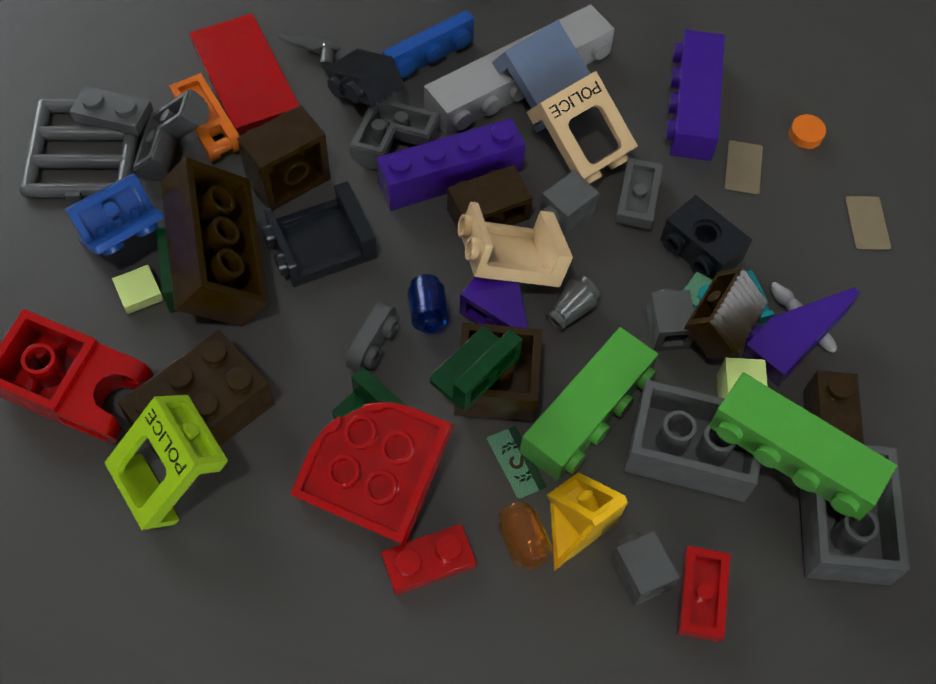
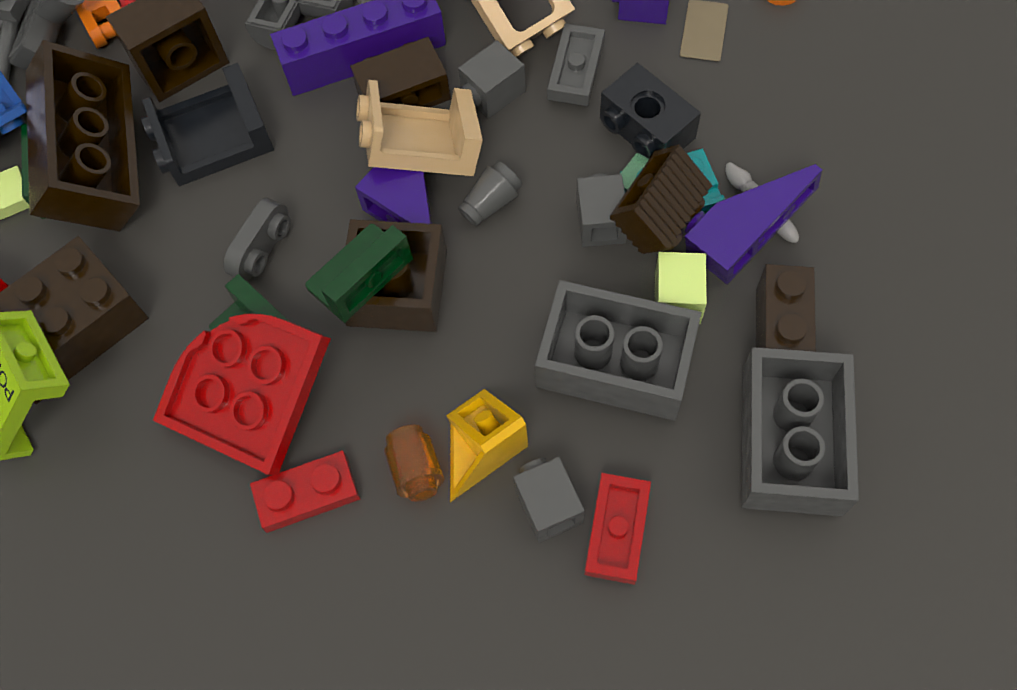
camera: 10 degrees right, 5 degrees up
(428, 304) = (323, 200): clear blue brick -> none
(520, 471) = (415, 378): clear green sticker -> none
(588, 404) = (498, 310): bright green brick -> none
(802, 447) = (733, 355): bright green brick -> none
(868, 222) = (848, 89): dark tan sticker -> none

